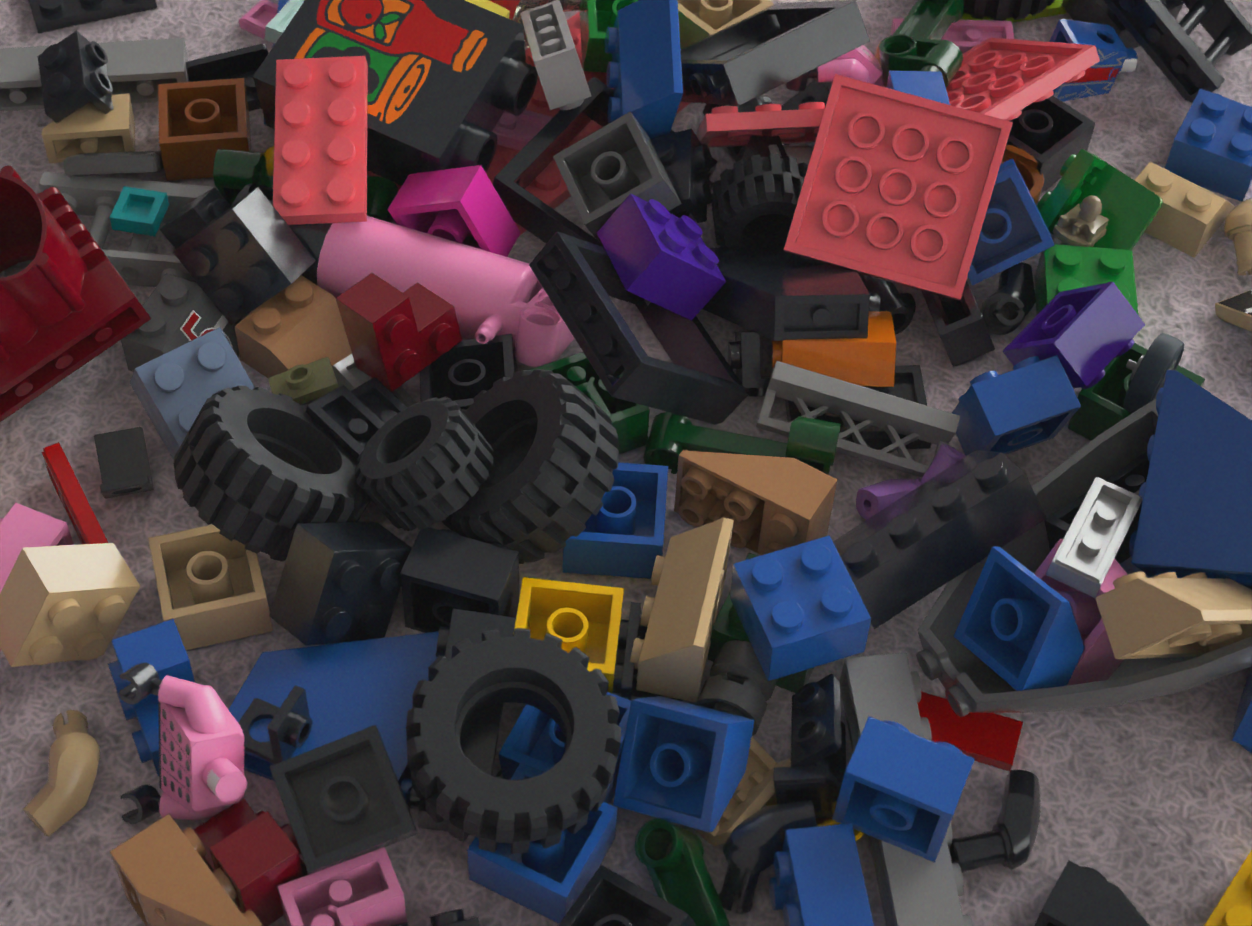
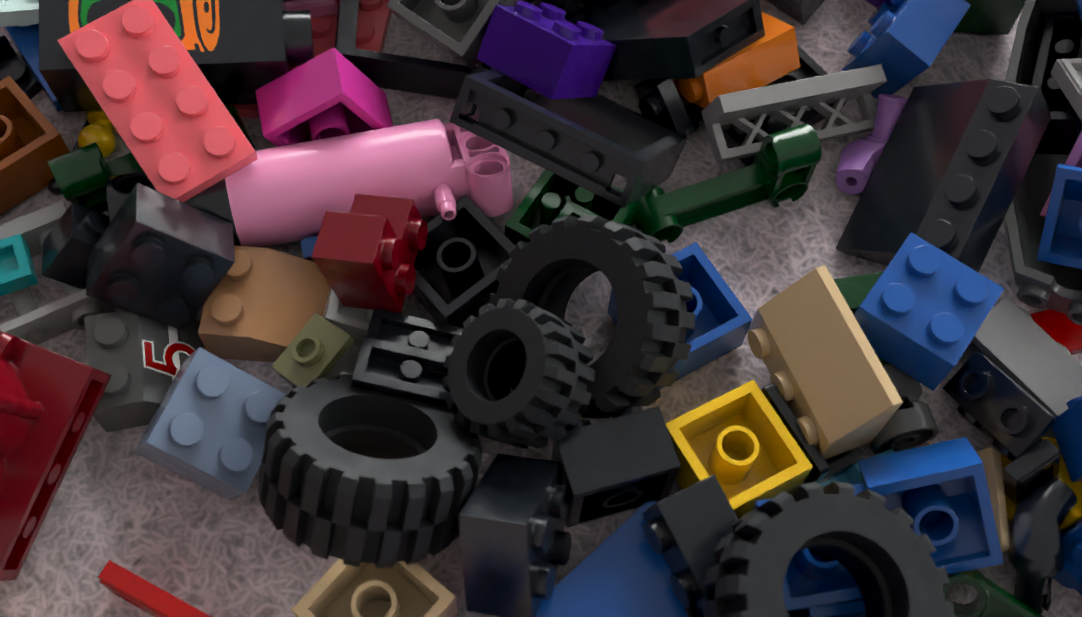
camera: 35 degrees left, 10 degrees up
(123, 462) = (187, 537): black bracket -> none
(768, 497) = (788, 230): medium nougat slope -> none

